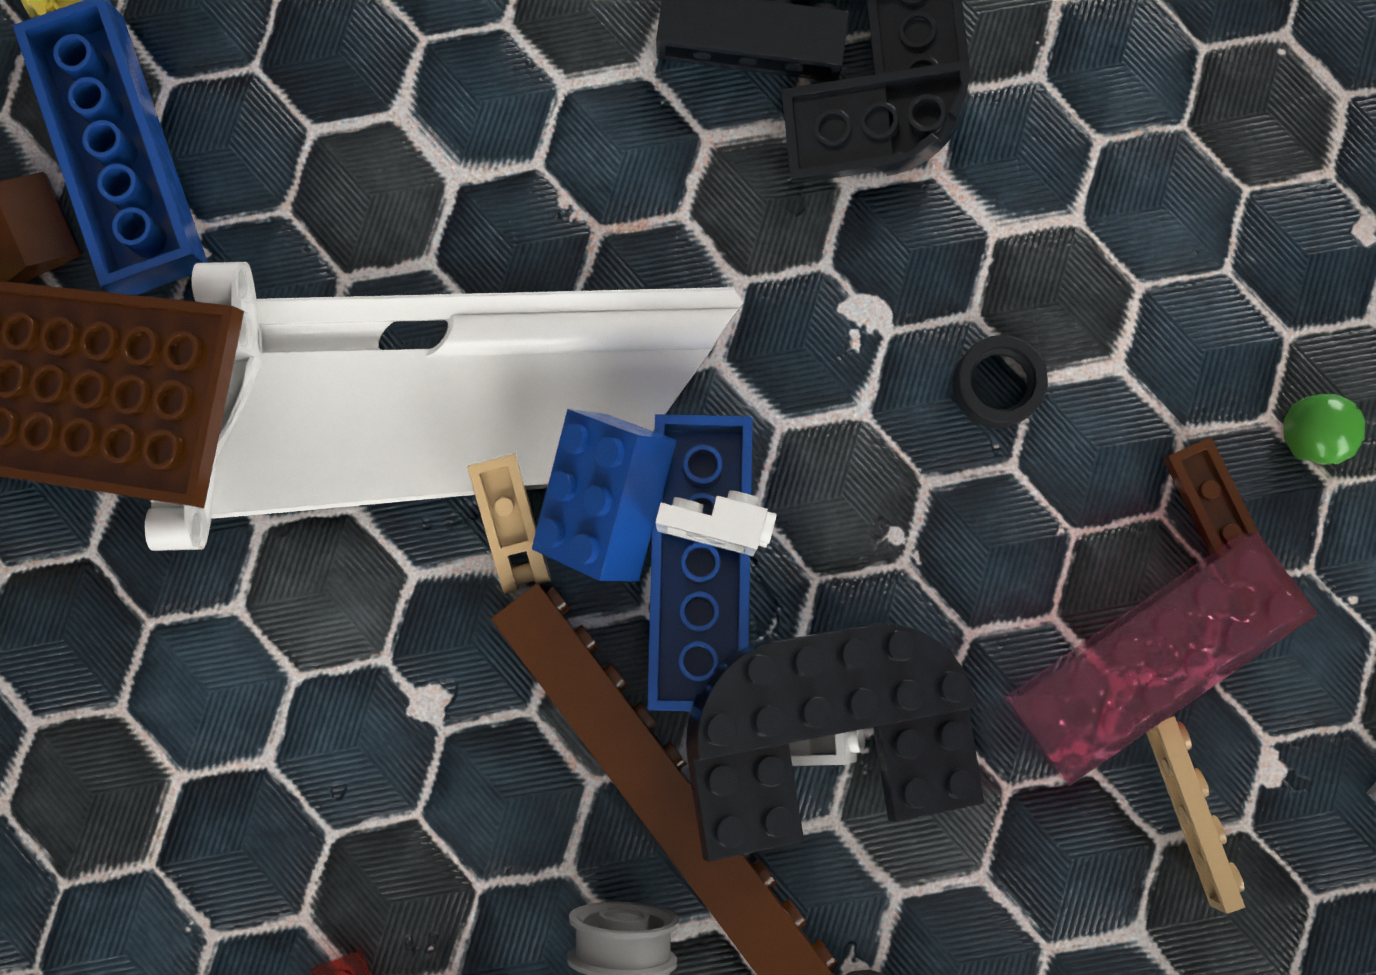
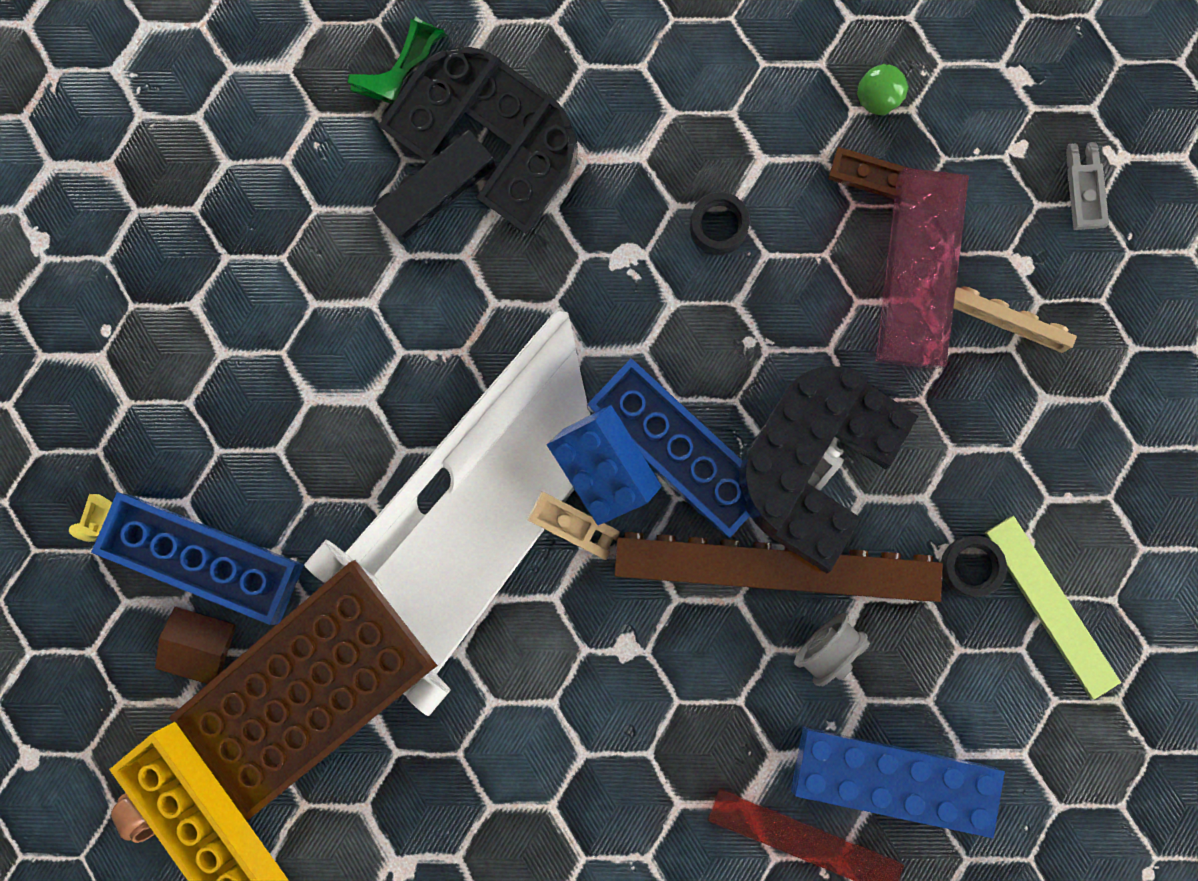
camera: 40 degrees left, 0 degrees up
(734, 524) = (677, 413): white plate -> none

